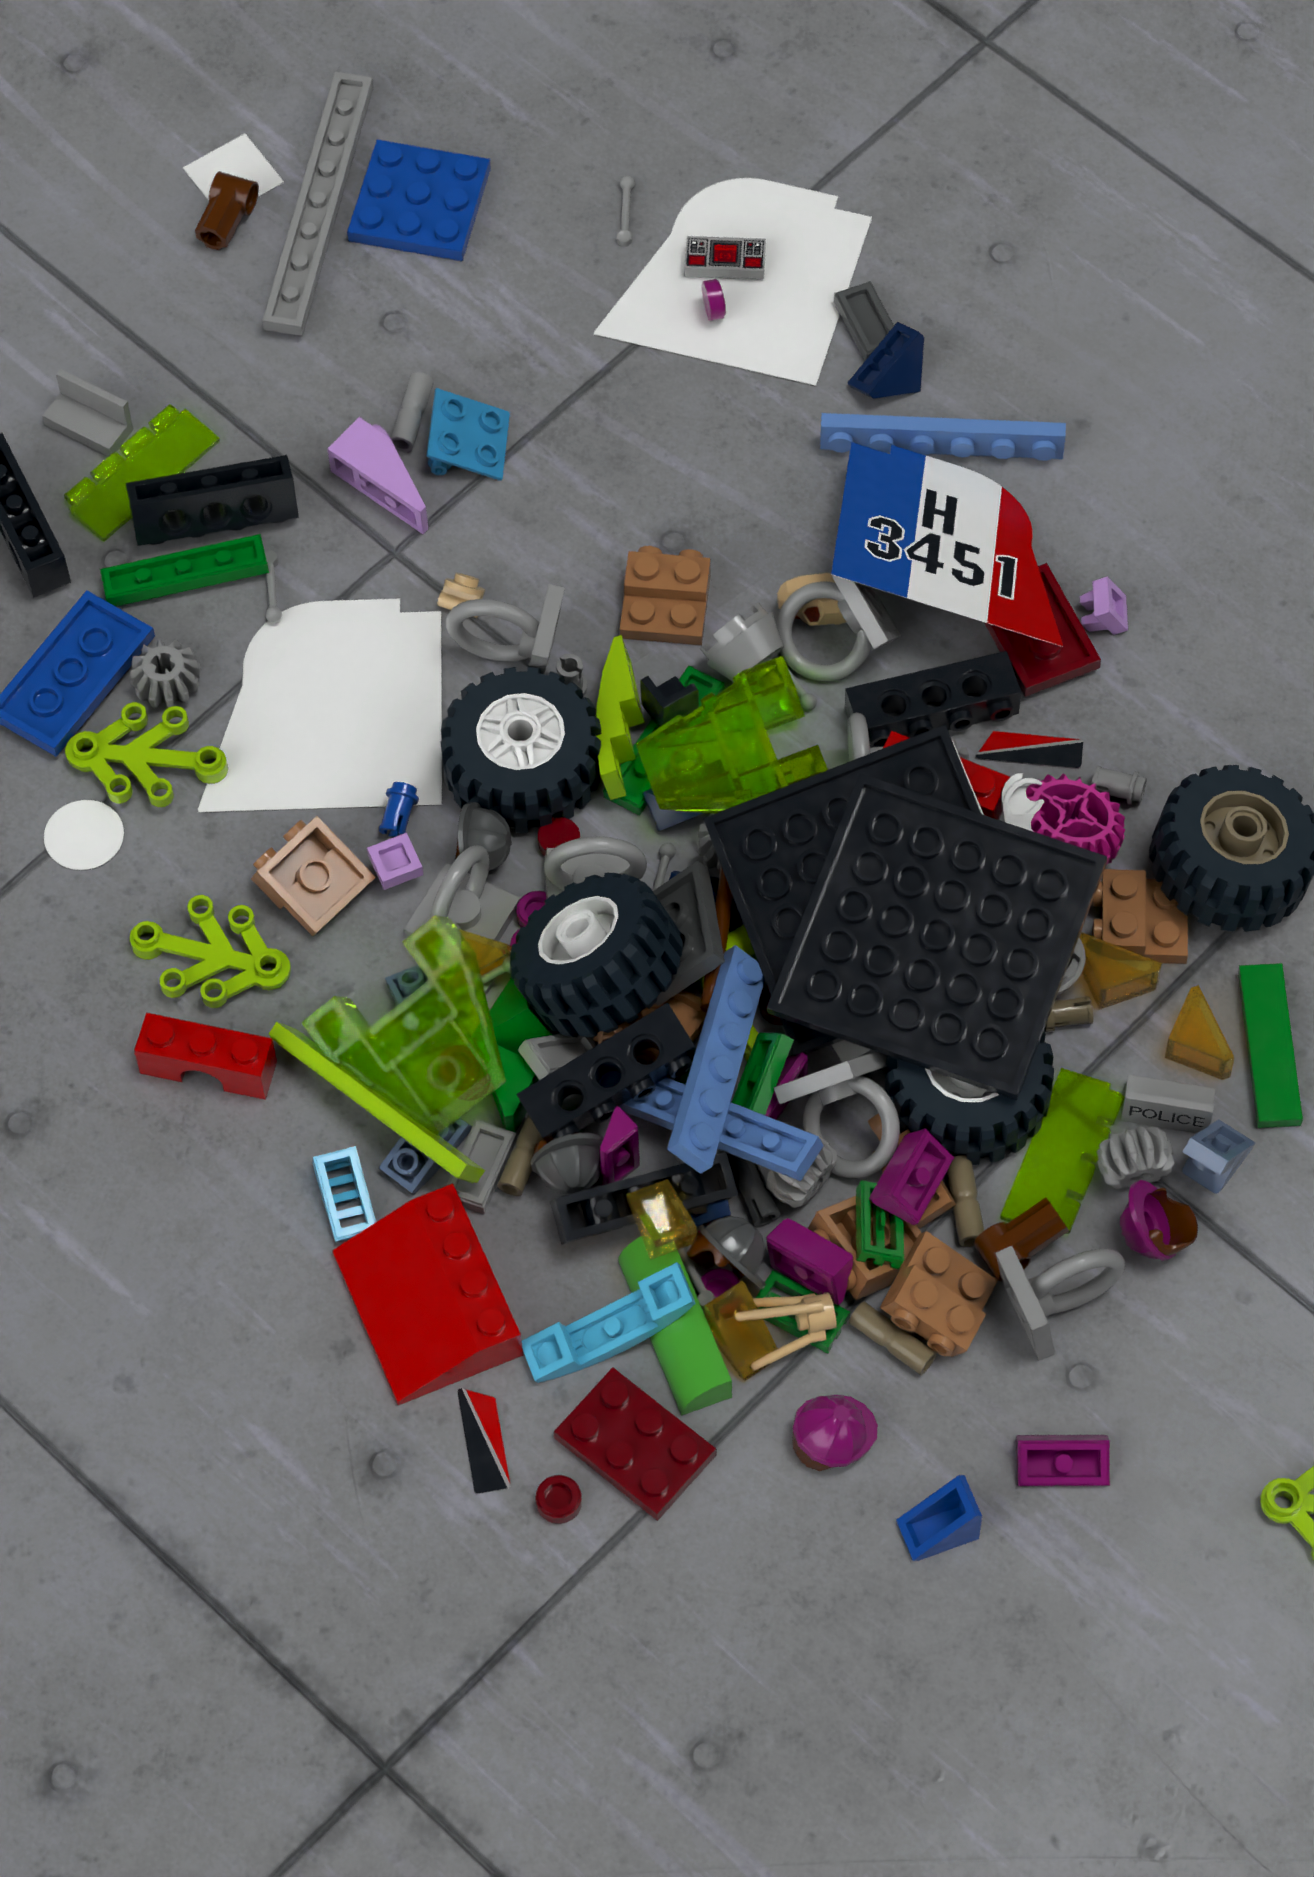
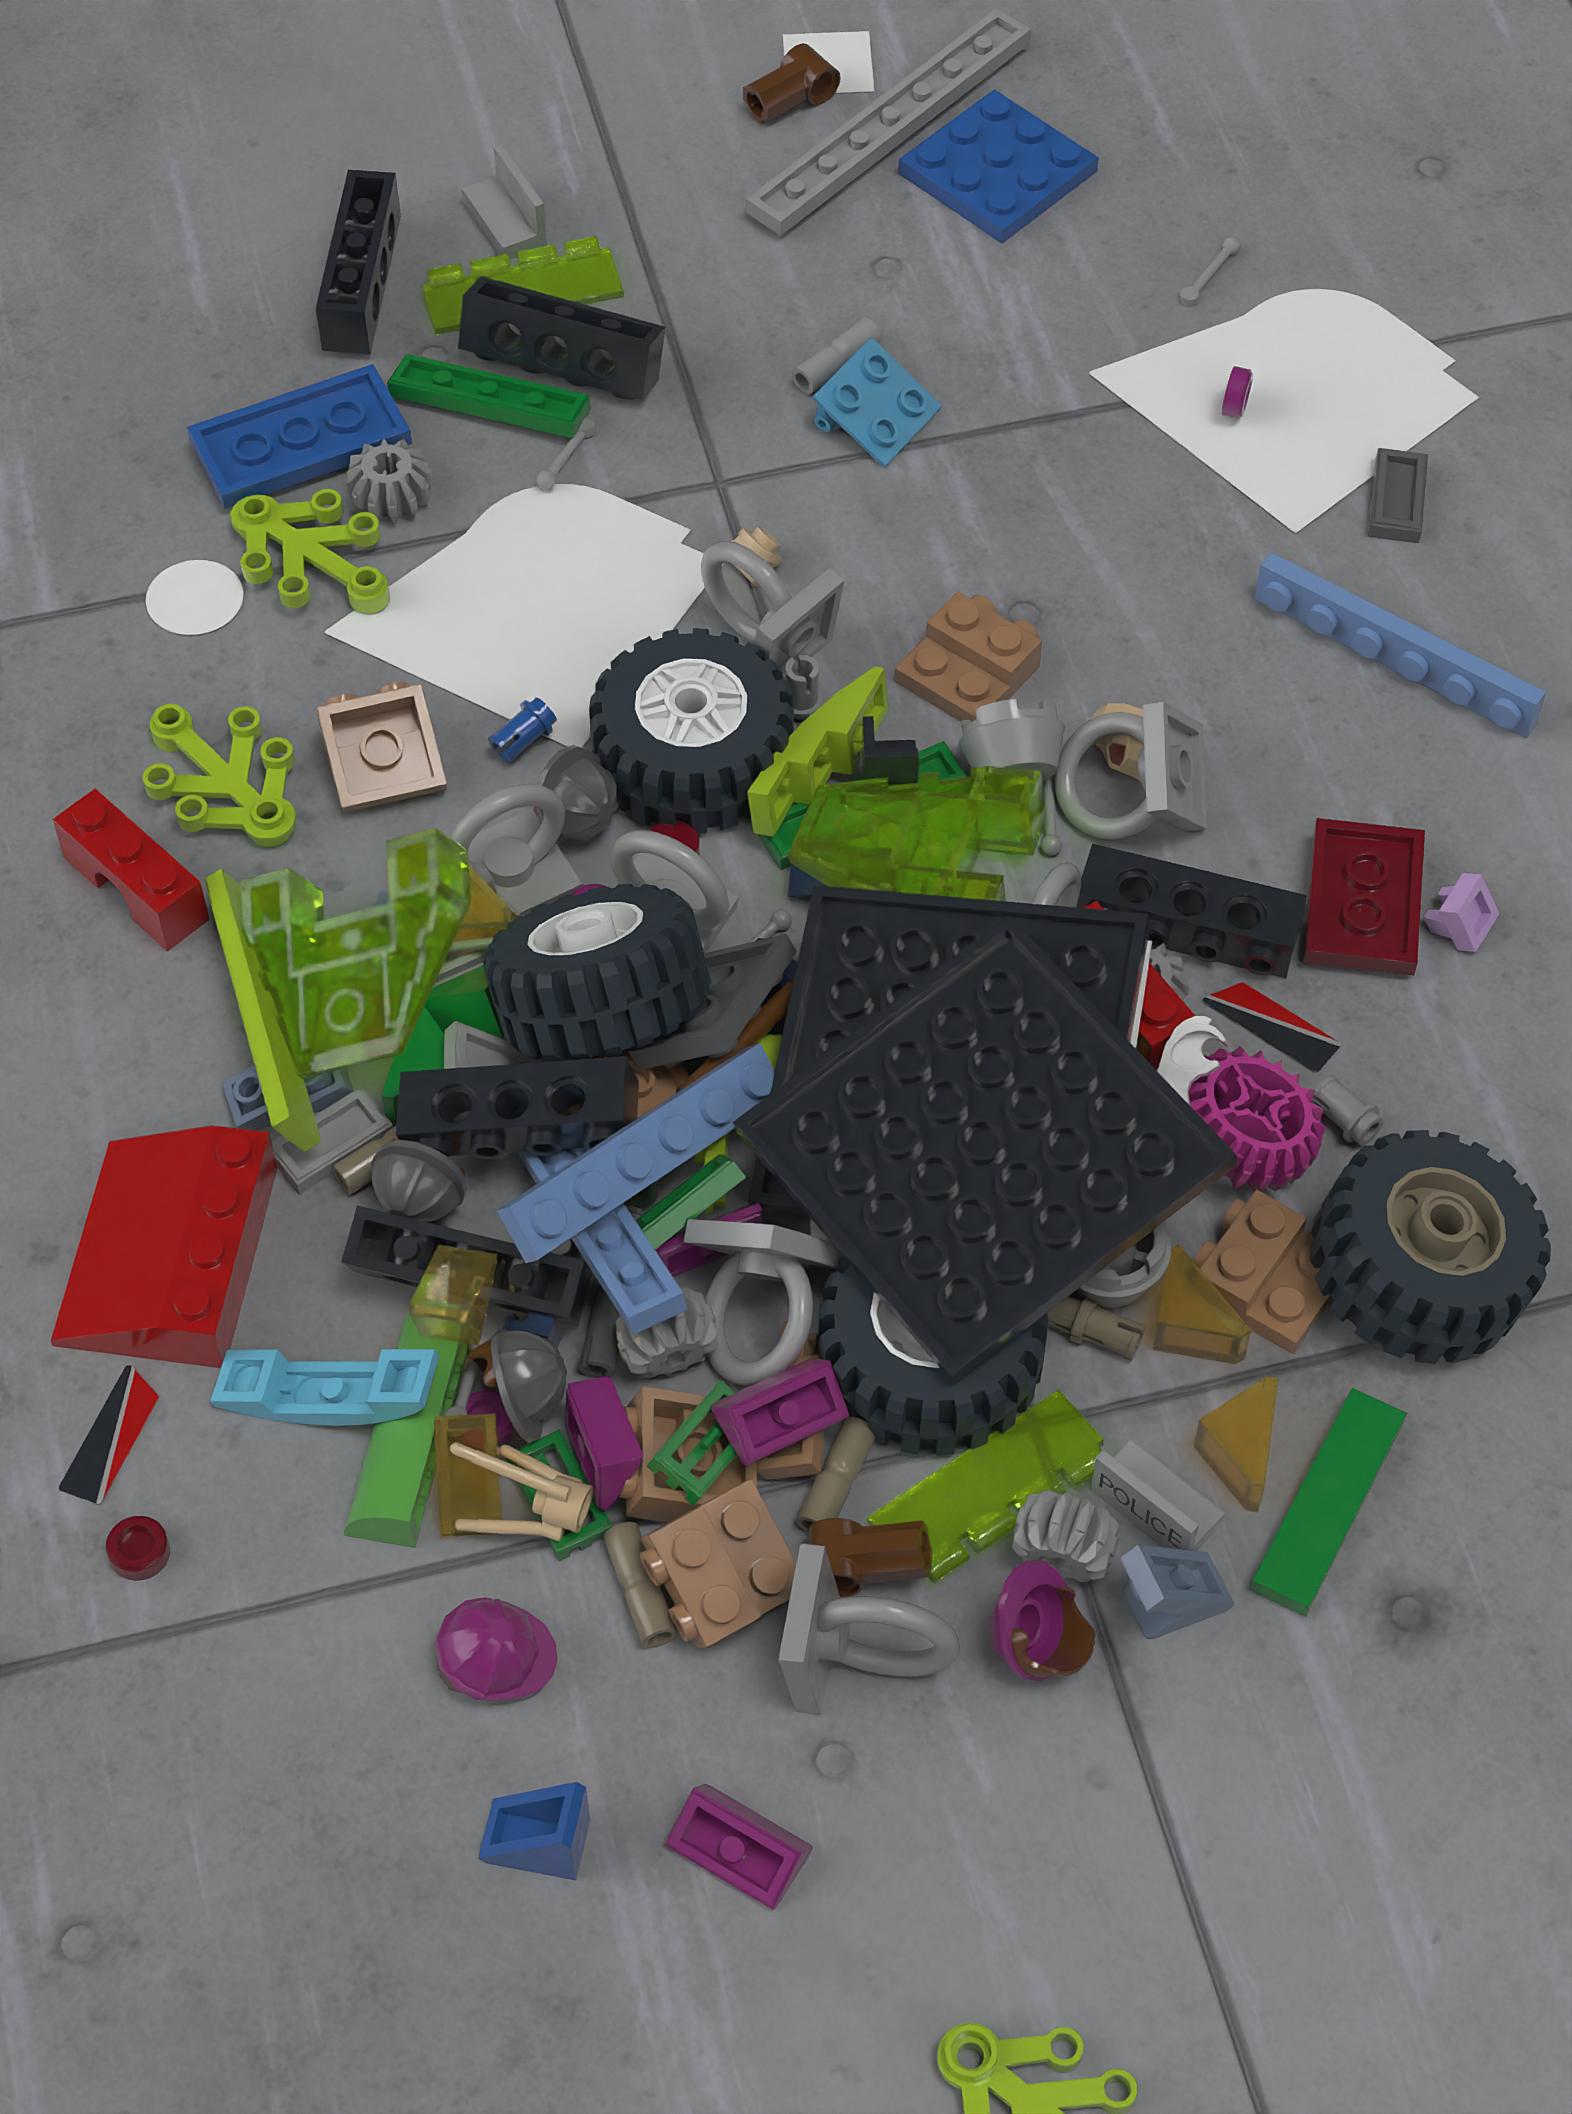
camera: 30 degrees right, 5 degrees down
(334, 1161) = (160, 1048): medium azure slope -> none
(372, 465) = (753, 383): lavender slope -> none
(395, 861) = (473, 774): lavender tile -> none
(619, 1148) = (473, 1193): magenta slope -> none
(635, 1443) = (266, 1536): dark red plate -> none
(725, 257) = (1283, 361): tile -> none
(893, 365) = (1392, 550): dark blue slope -> none
(941, 540) = (1309, 742): sticker -> none

